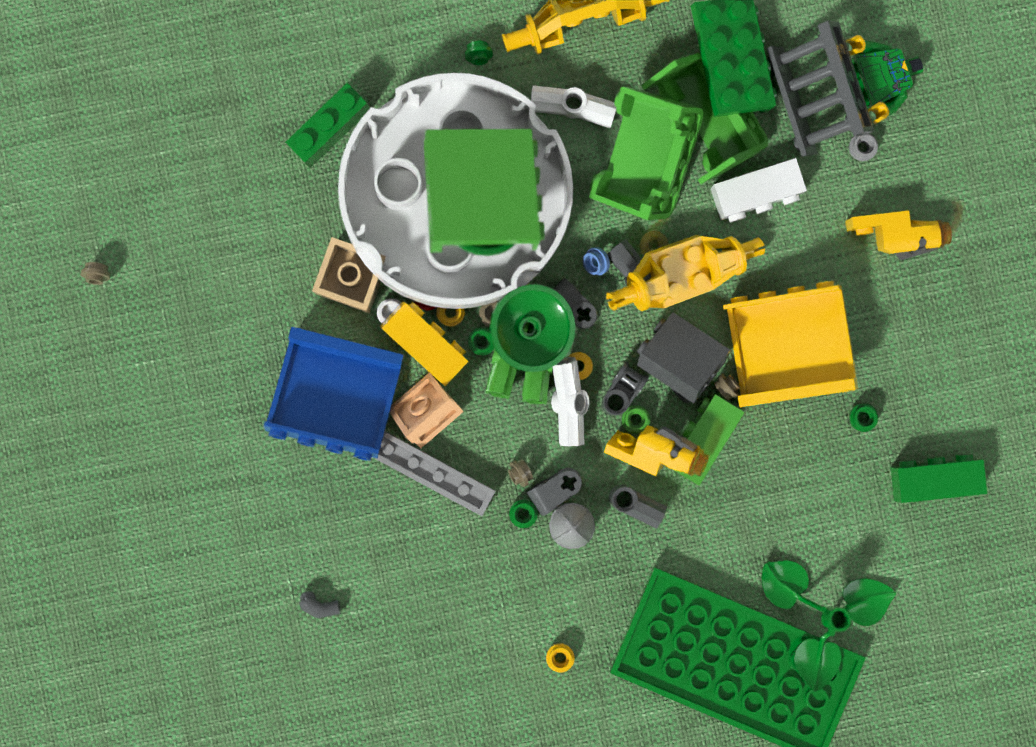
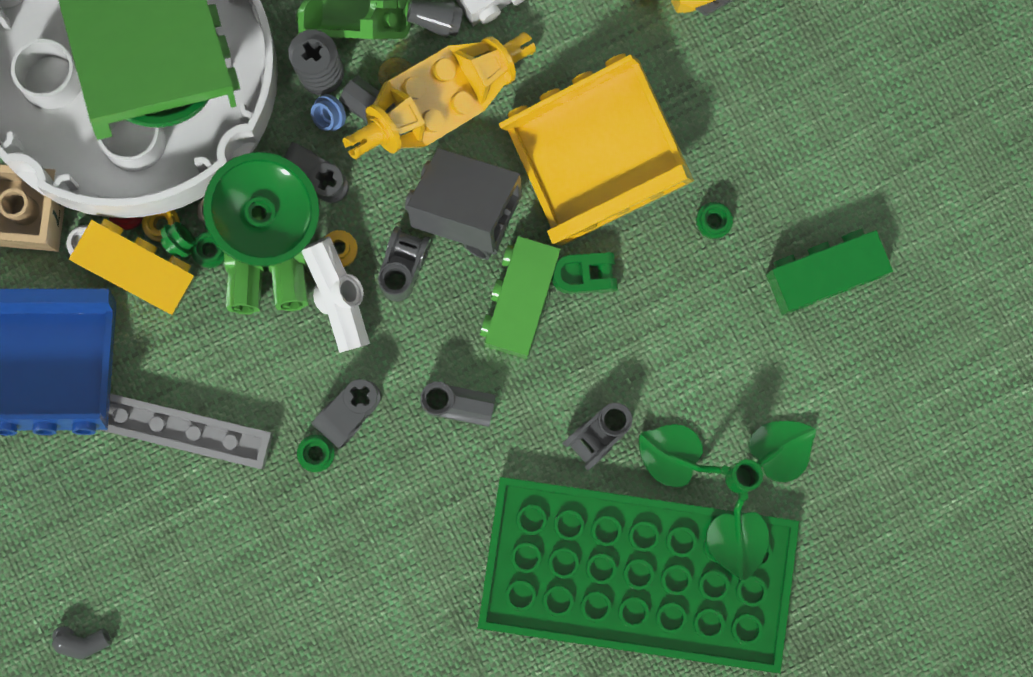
camera: 20 degrees left, 5 degrees down
(424, 411) = (157, 355): light nougat bracket -> none
(462, 330) = (177, 239): none -> green plate
(520, 473) = (298, 402): dark tan plate -> none
(560, 666) = (399, 633): yellow plate -> none
(571, 525) = (378, 450): light grey helmet -> none
(602, 212) = (316, 62): none -> dark grey piece
(644, 415) = (428, 285): bright green plate -> none
(658, 448) = (462, 322): yellow plate -> none
(697, 209) = (438, 17): none -> dark grey cone
(727, 386) = (533, 225): dark tan plate -> none
(734, 555) = (598, 435): none -> dark grey piece
(749, 433) = (573, 273): none -> green plate

